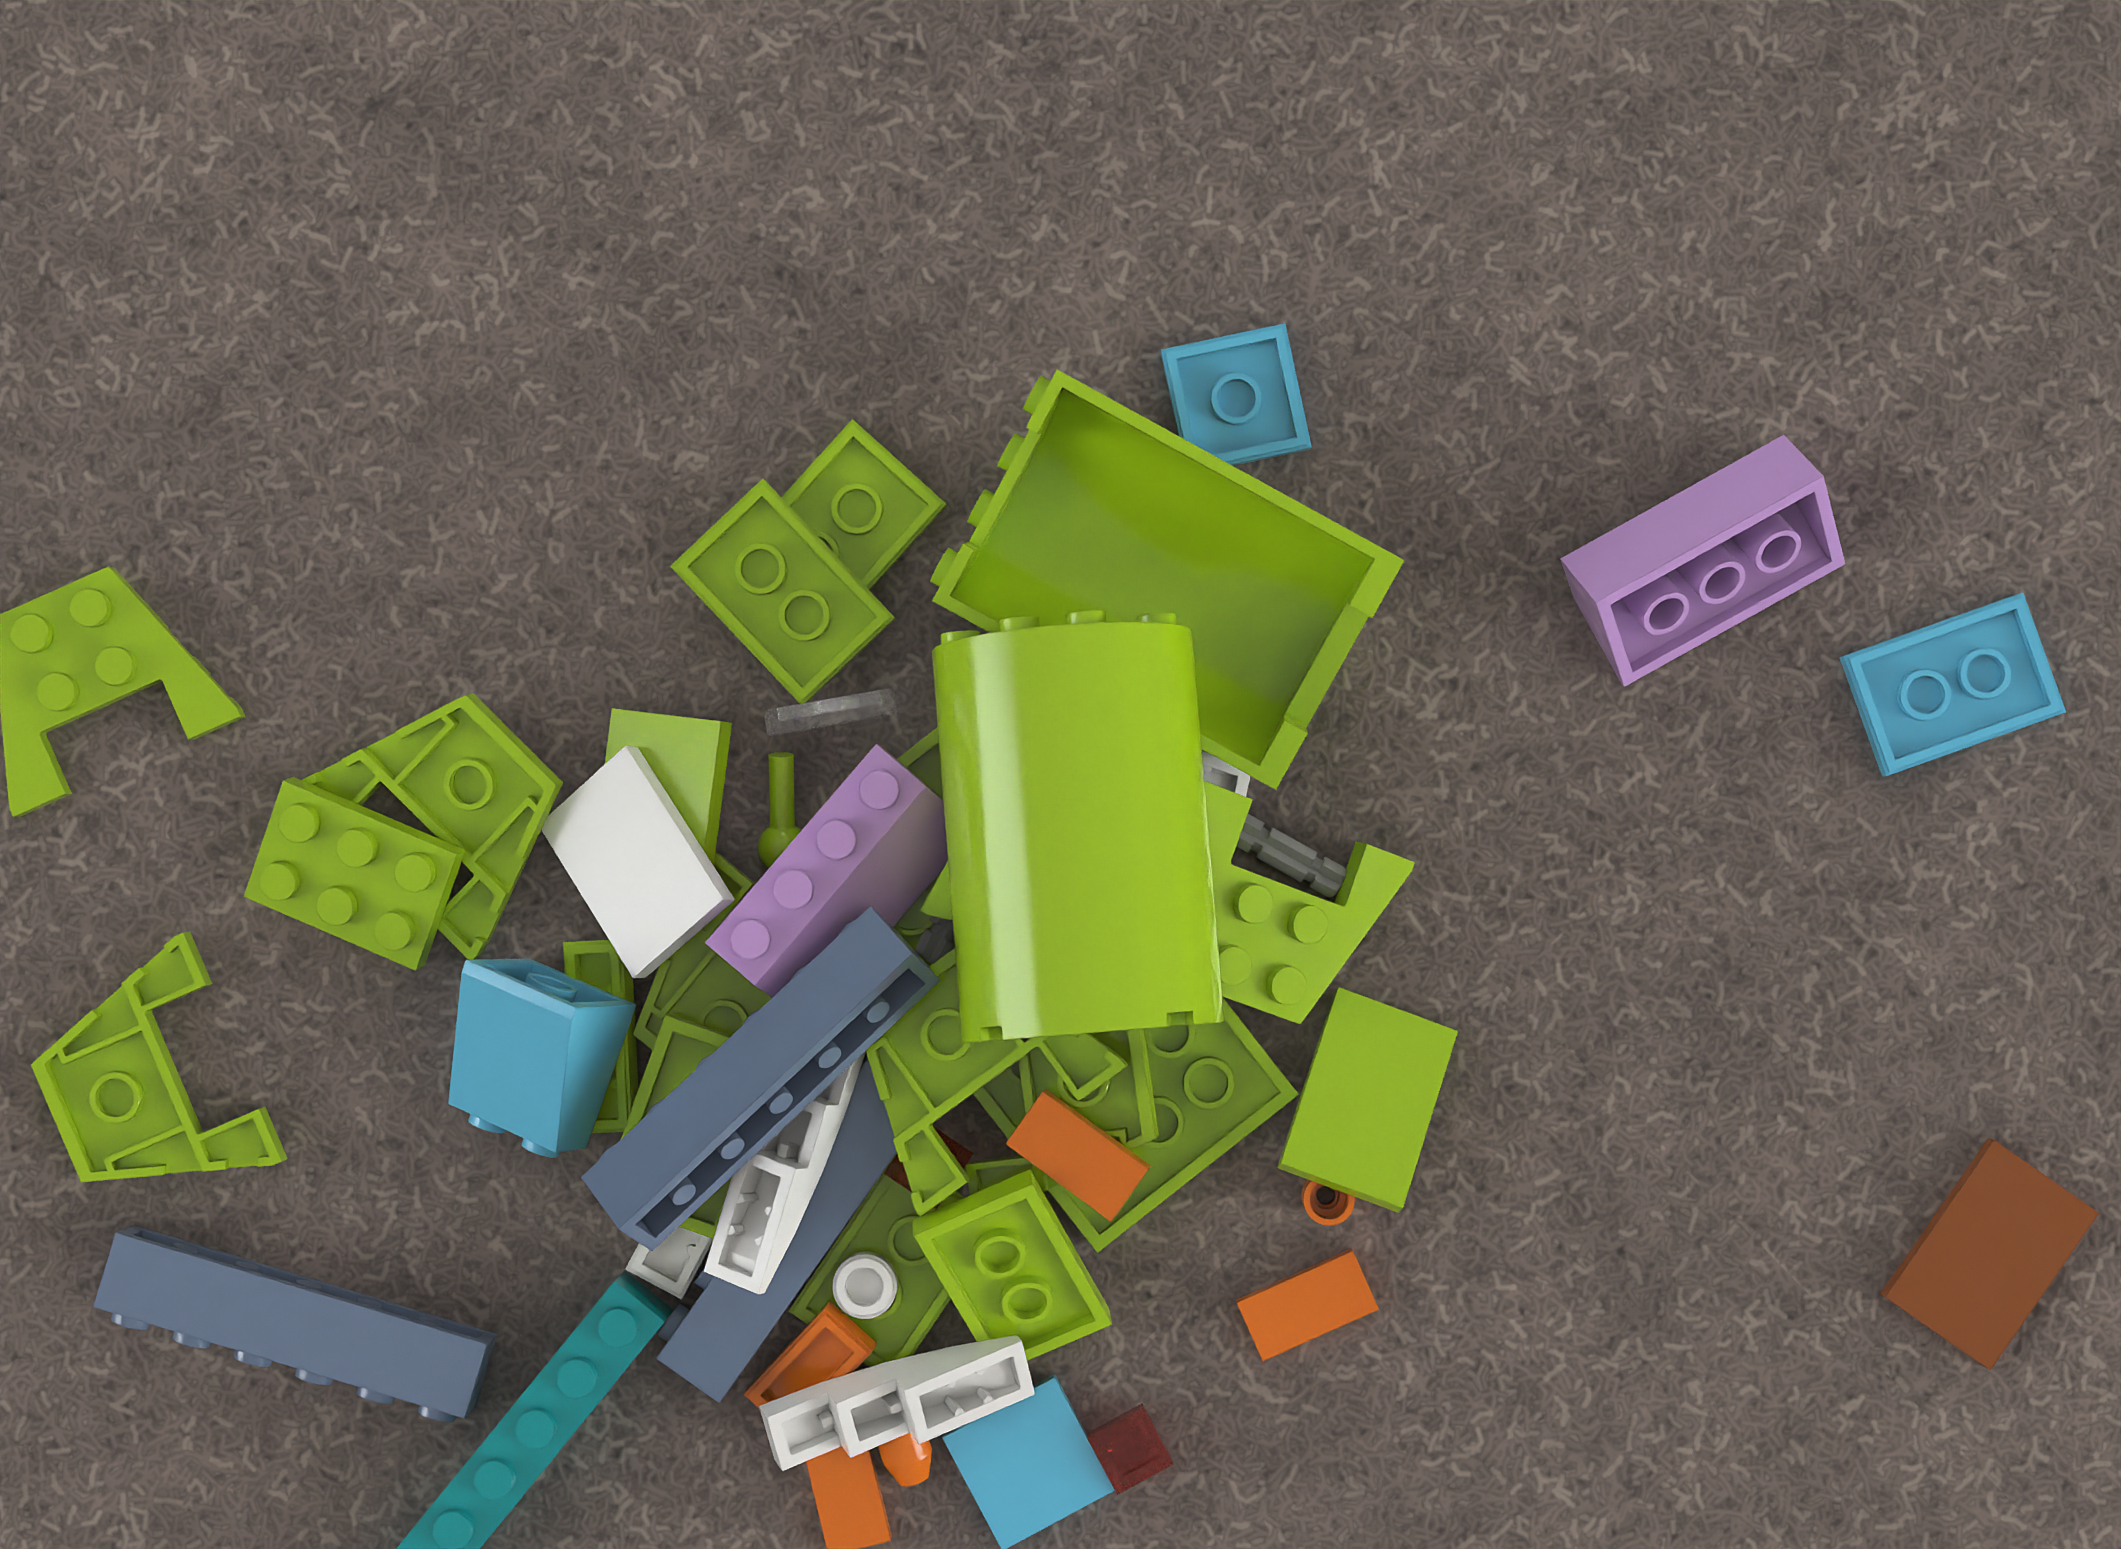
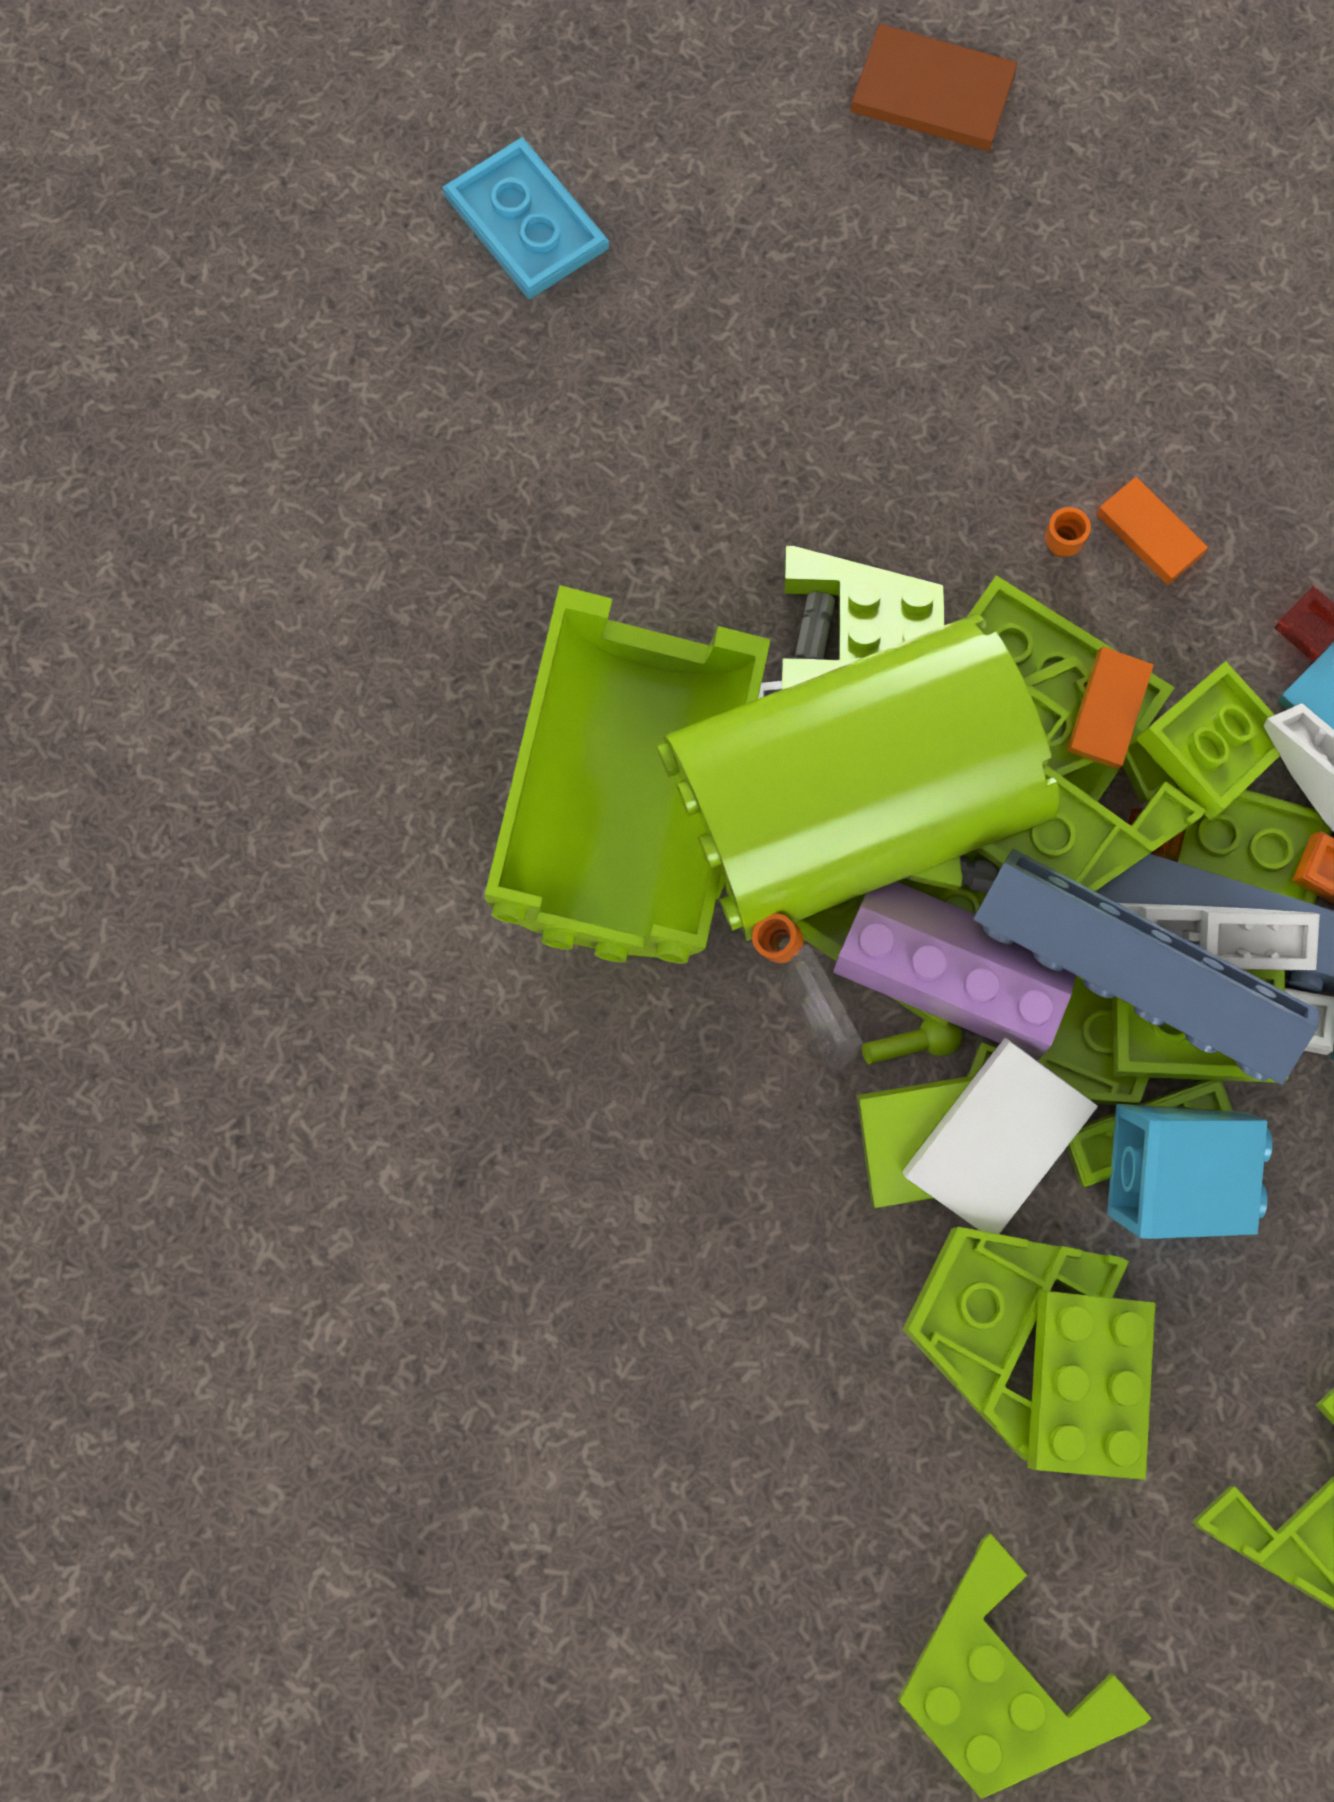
camera: 110 degrees left, 15 degrees down
(783, 592) = (731, 1090): lime tile -> none
(863, 503) = (666, 1068): lime tile -> none
(865, 1285) = (1269, 856): white tile -> none
(910, 671) = (771, 931): none -> orange hose
(1238, 395) = (457, 782): medium azure tile -> none
(1368, 1100) = (982, 523): lime tile -> none
(1705, 559) = (482, 404): lavender slope -> none

